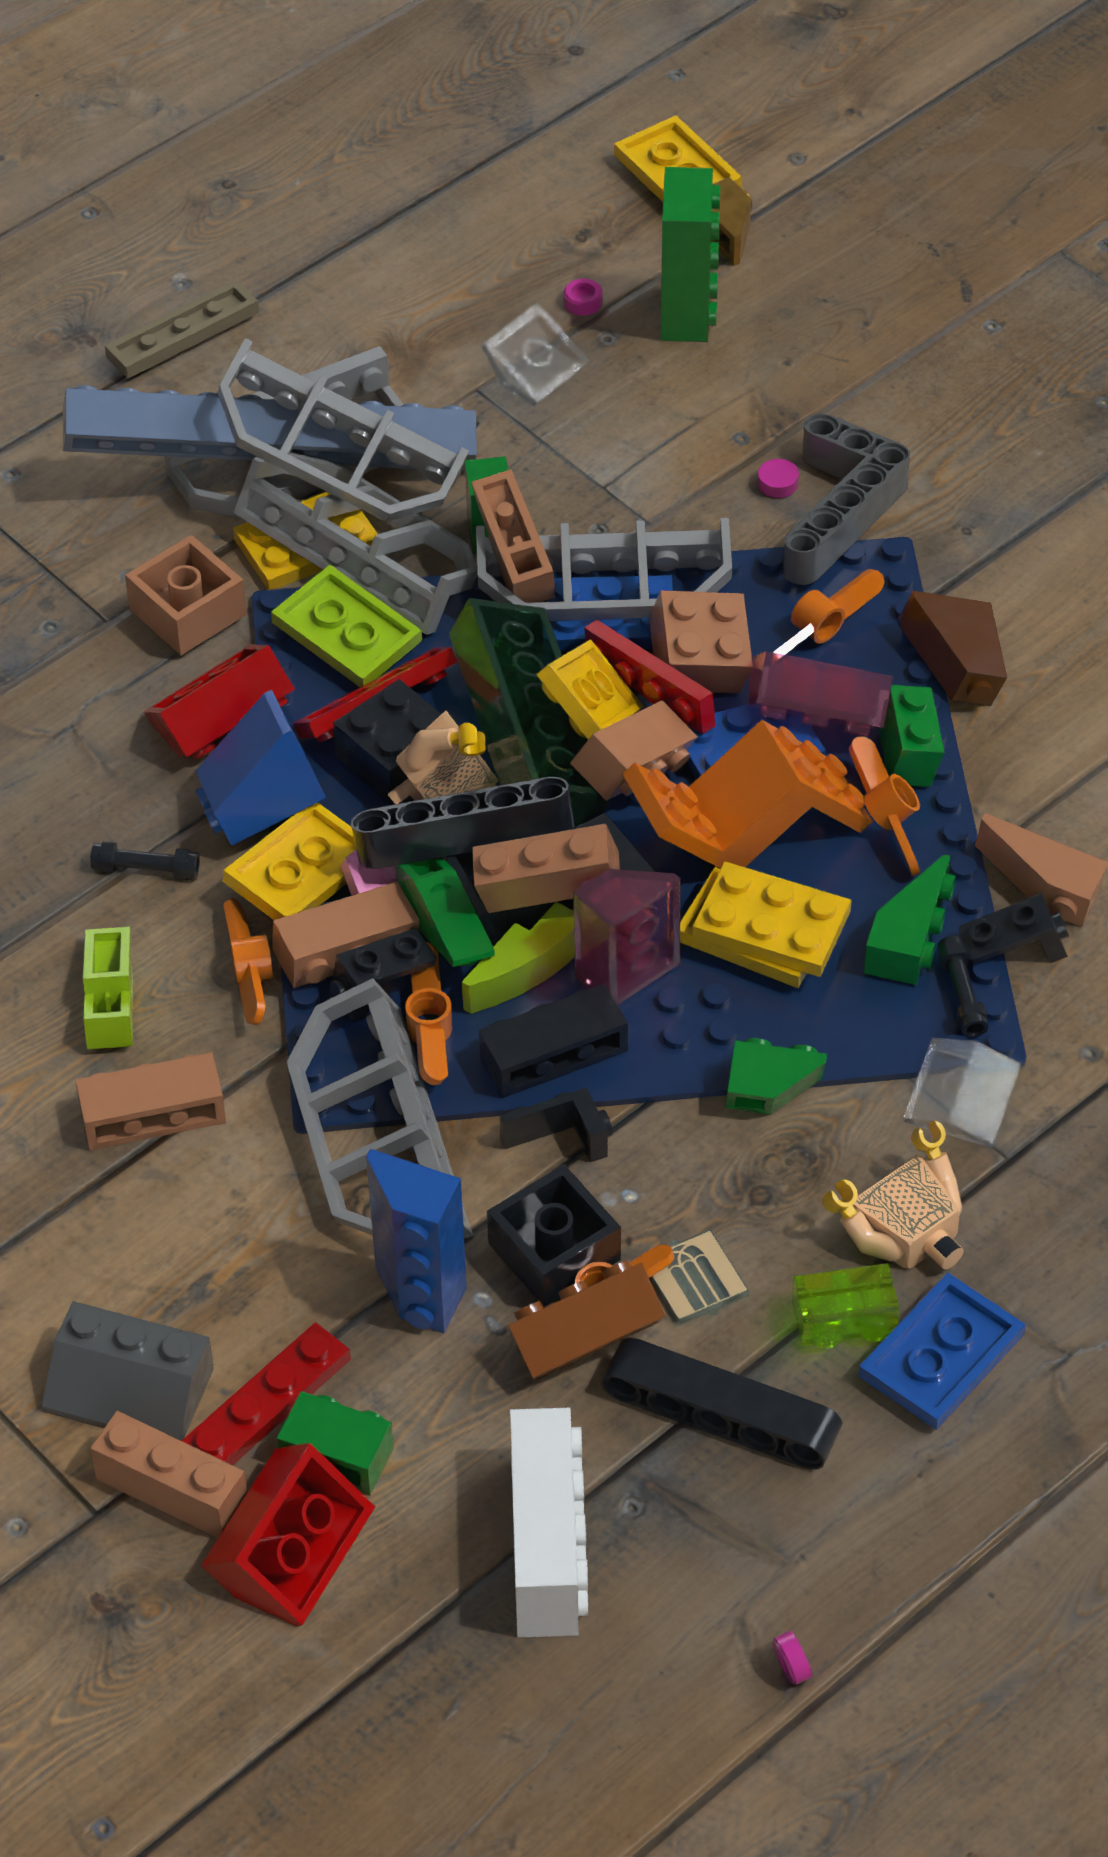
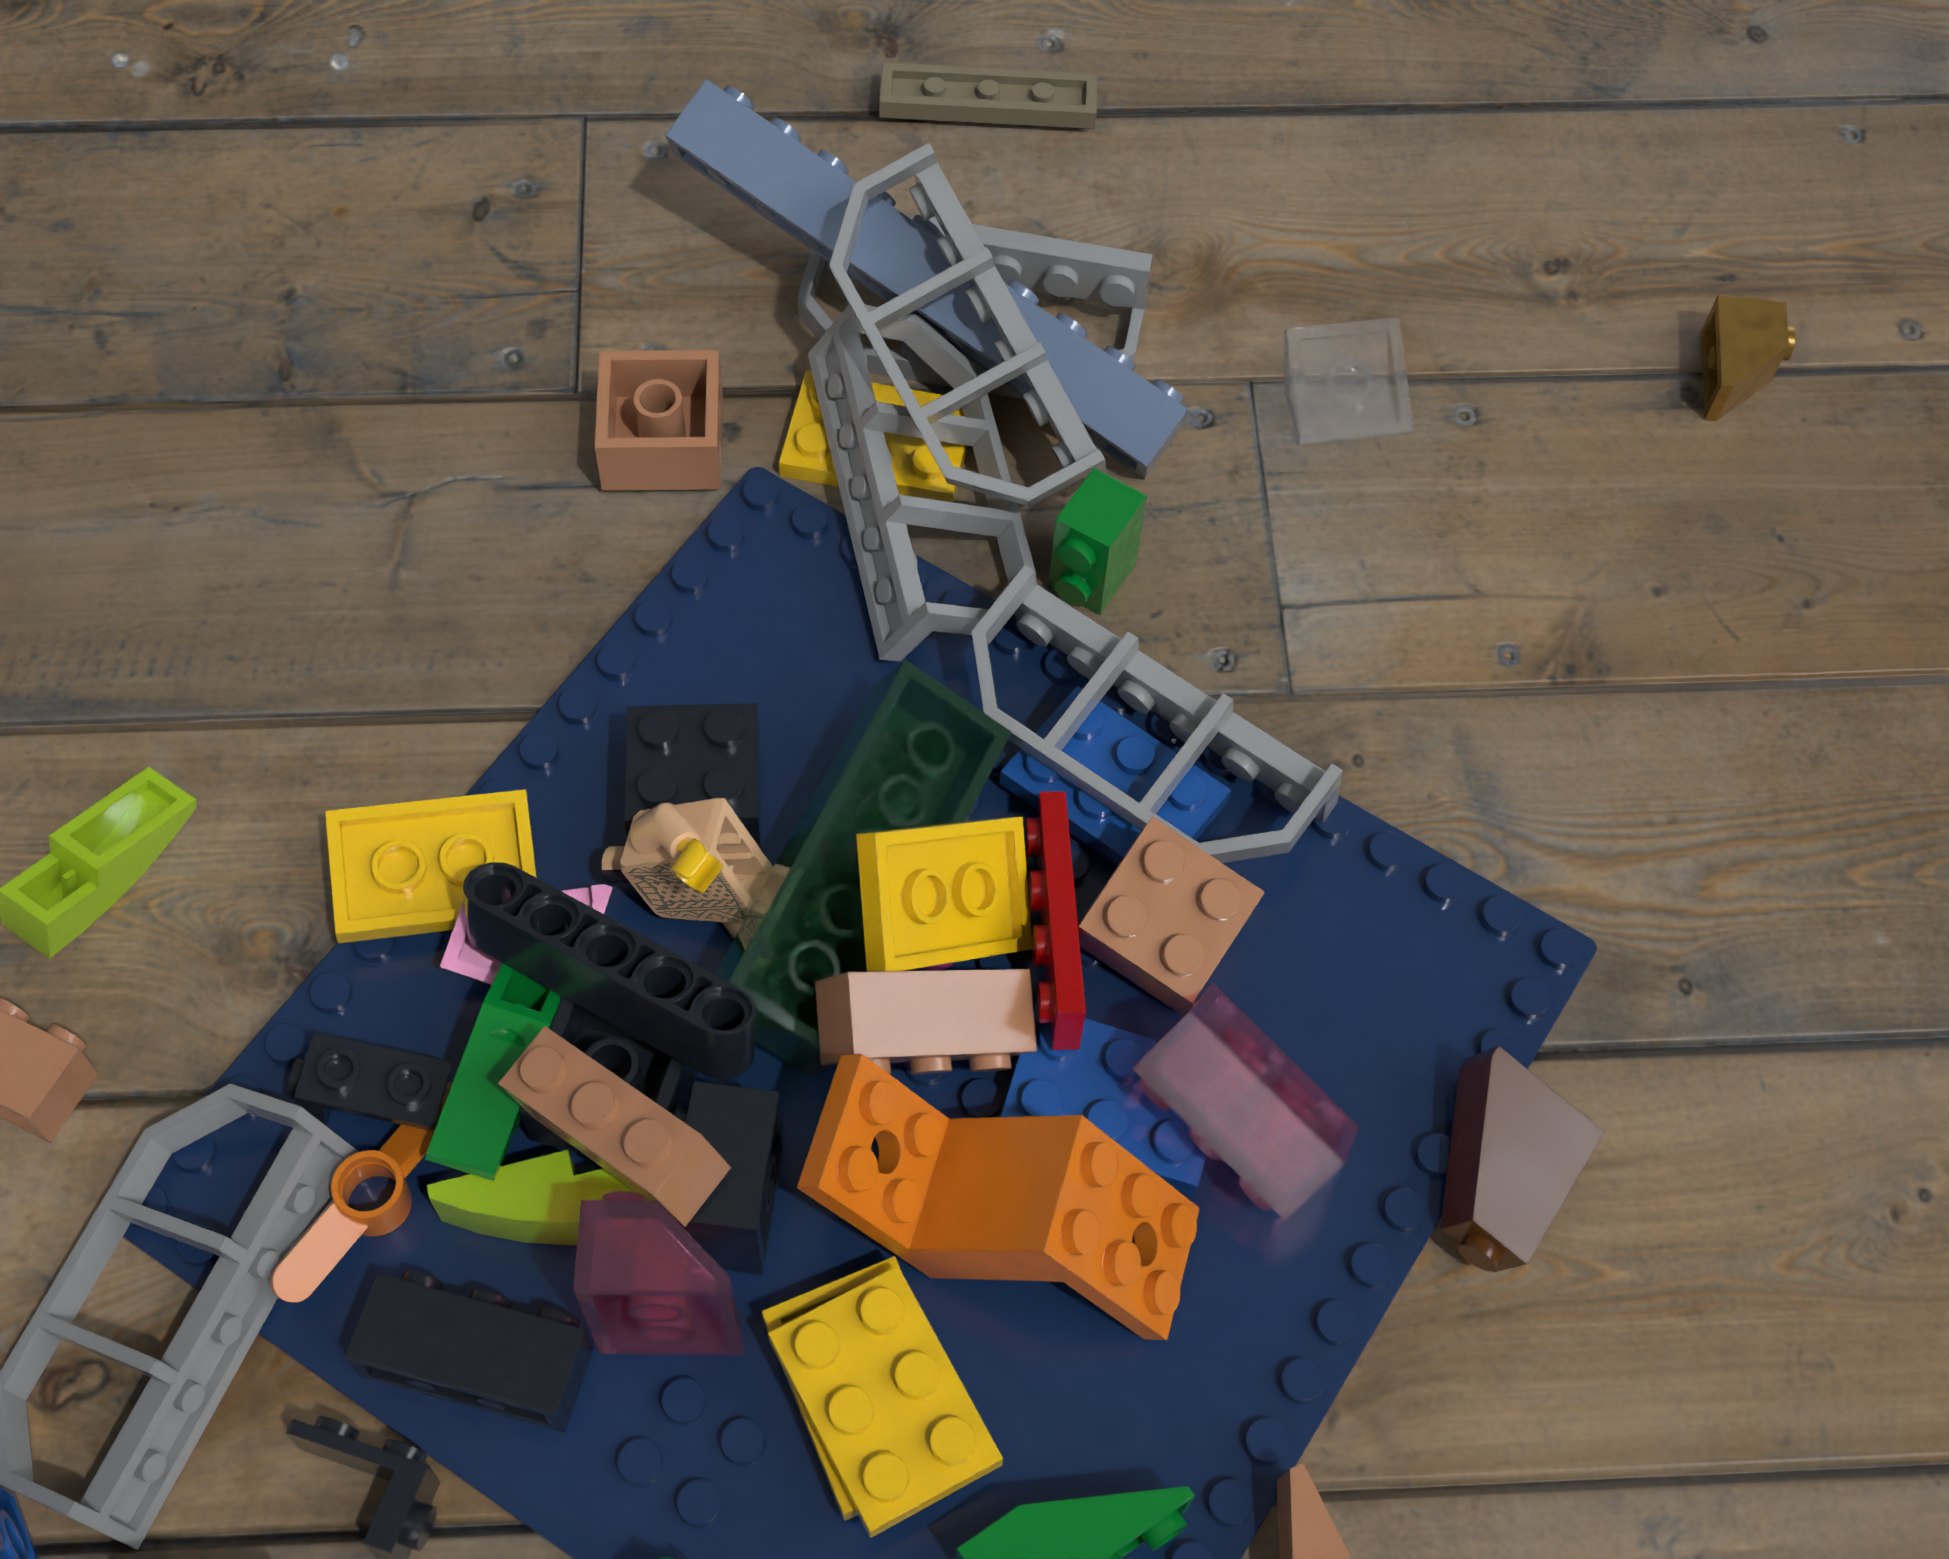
camera: 35 degrees right, 10 degrees up
(107, 857) = (331, 756): black bar -> none
(218, 700) = (562, 581): red slope -> none
(250, 961) = (271, 939): orange piece -> none
(256, 774) = (490, 714): blue slope -> none
(312, 938) = (375, 997): nougat brick -> none
(346, 626) = (793, 586): lime plate -> none
(426, 668) = (779, 700): red plate -> none
(514, 538) = (1051, 614): nougat slope -> none
(583, 297) = (1481, 343): dark pink tile -> none
(669, 145) = (1744, 243): yellow plate -> none
(689, 254) = (1622, 369): green brick -> none
(778, 478) = (1500, 742): dark pink tile -> none
(823, 616) = (1368, 986): orange piece -> none
(873, 479) = (1617, 836): dark grey beam -> none
(887, 797) = (1204, 1329): orange piece -> none
(912, 735) = (1318, 1256): green brick -> none

